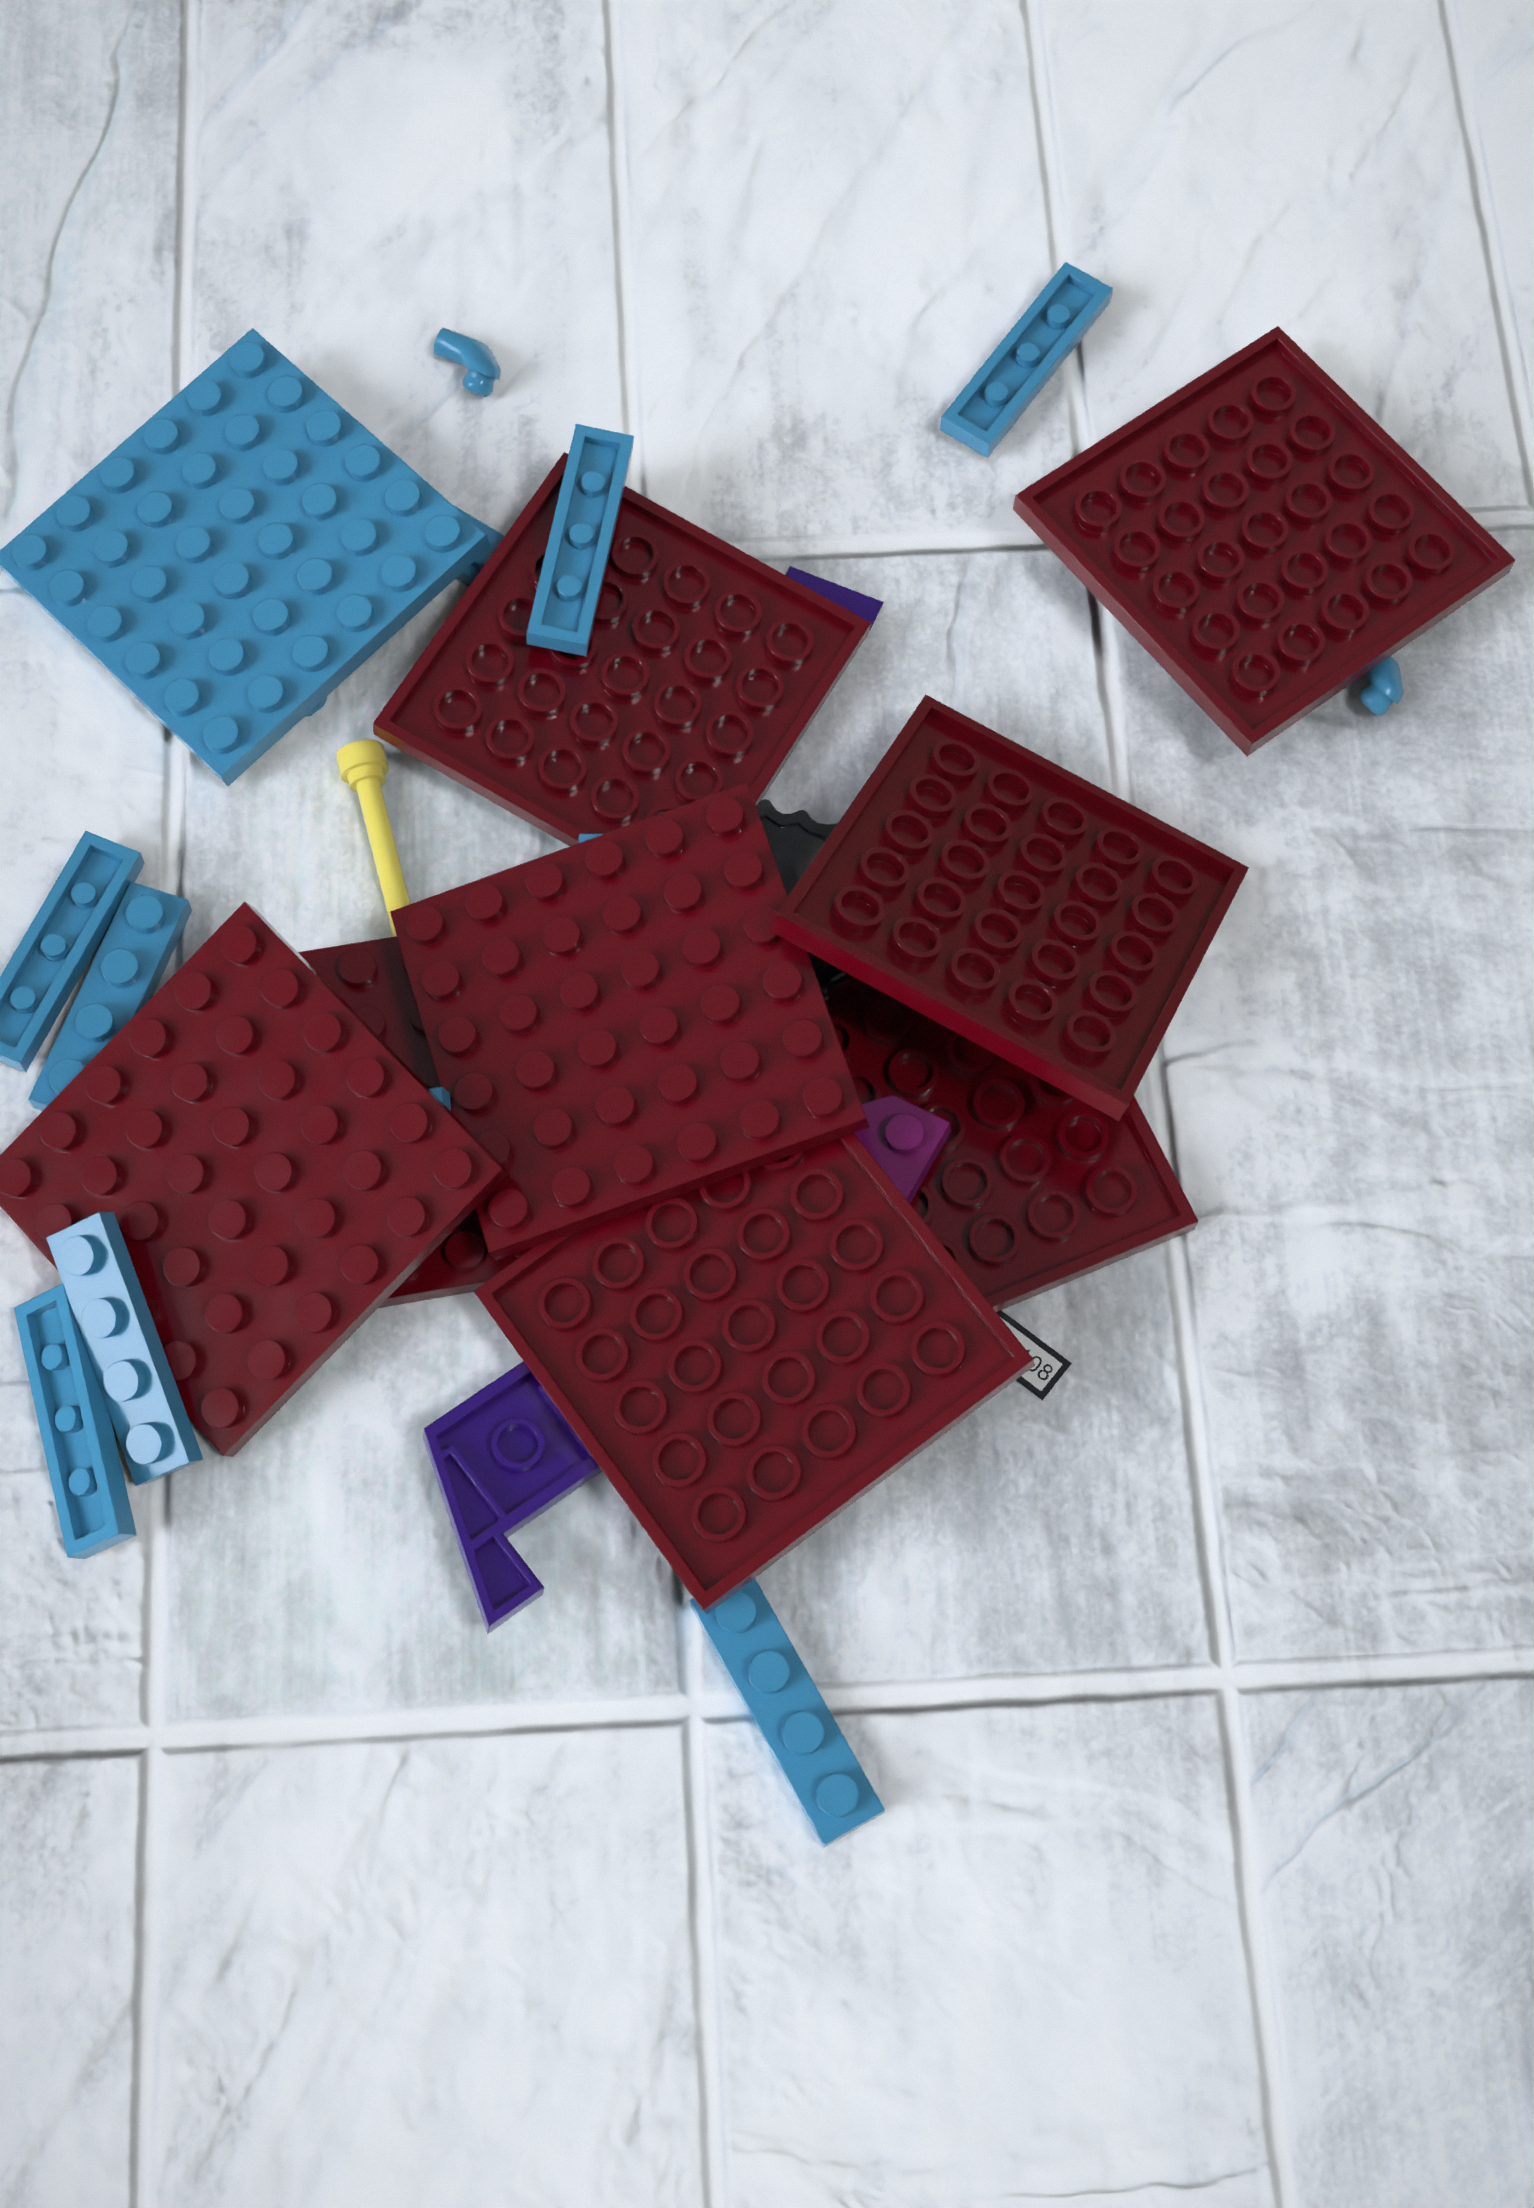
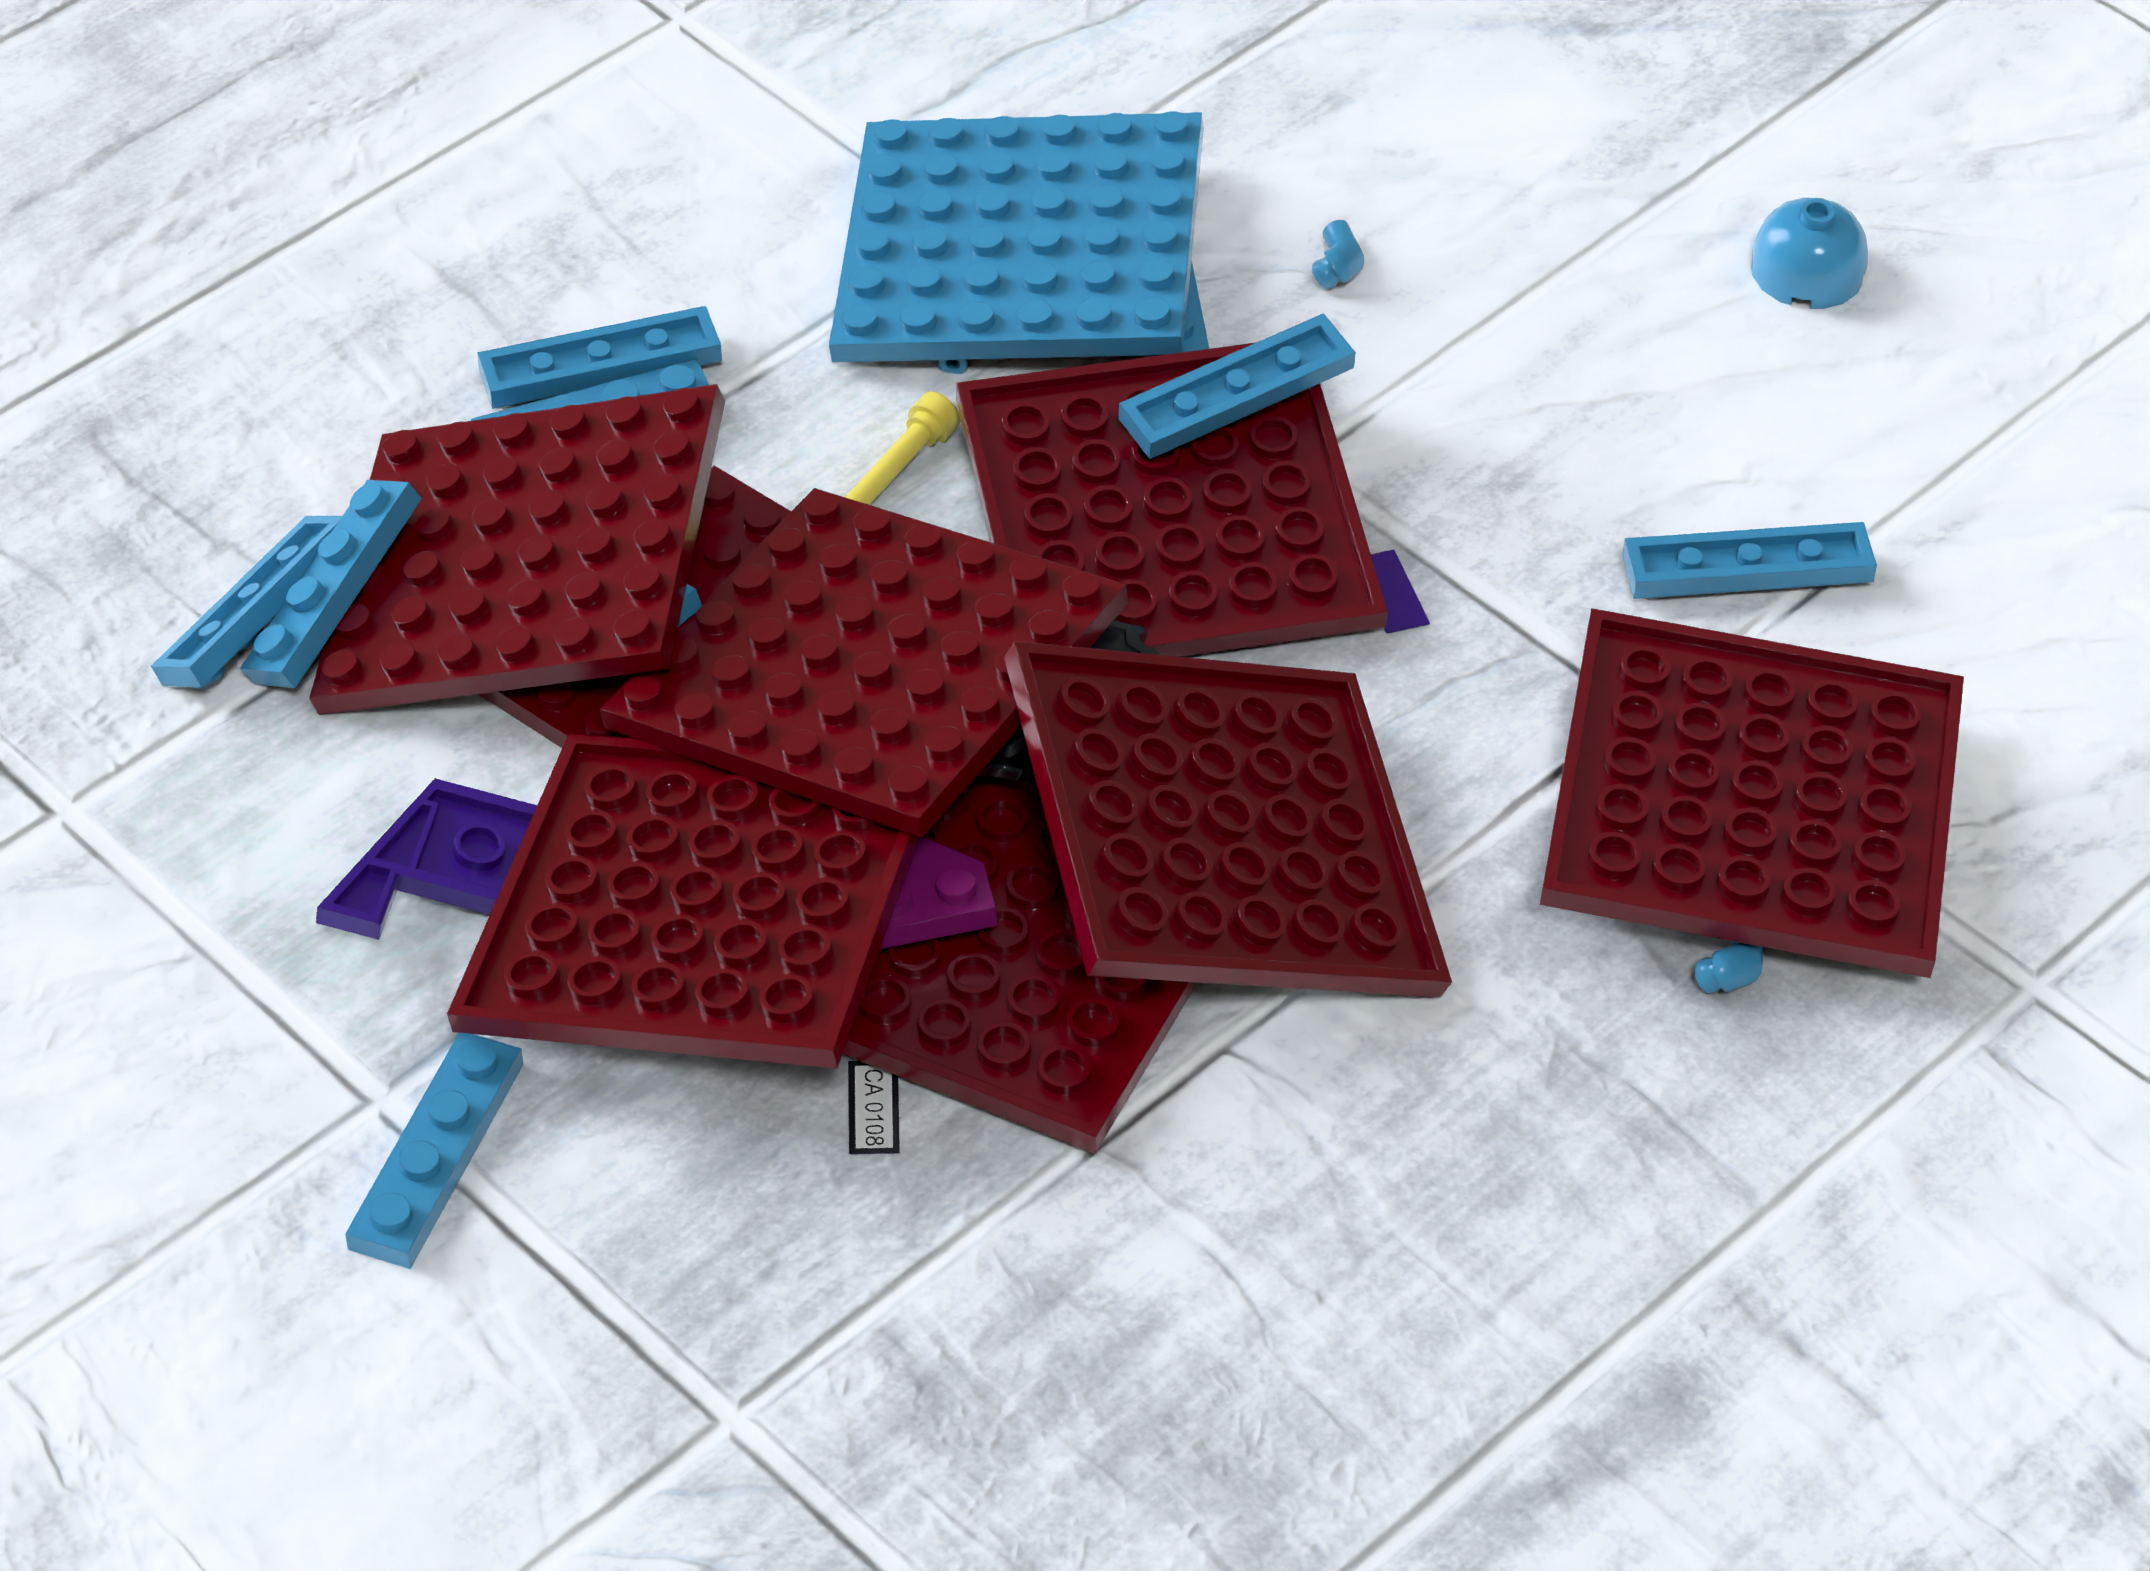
camera: 50 degrees right, 20 degrees down
(772, 75) = (1810, 253): none -> dark azure cylinder

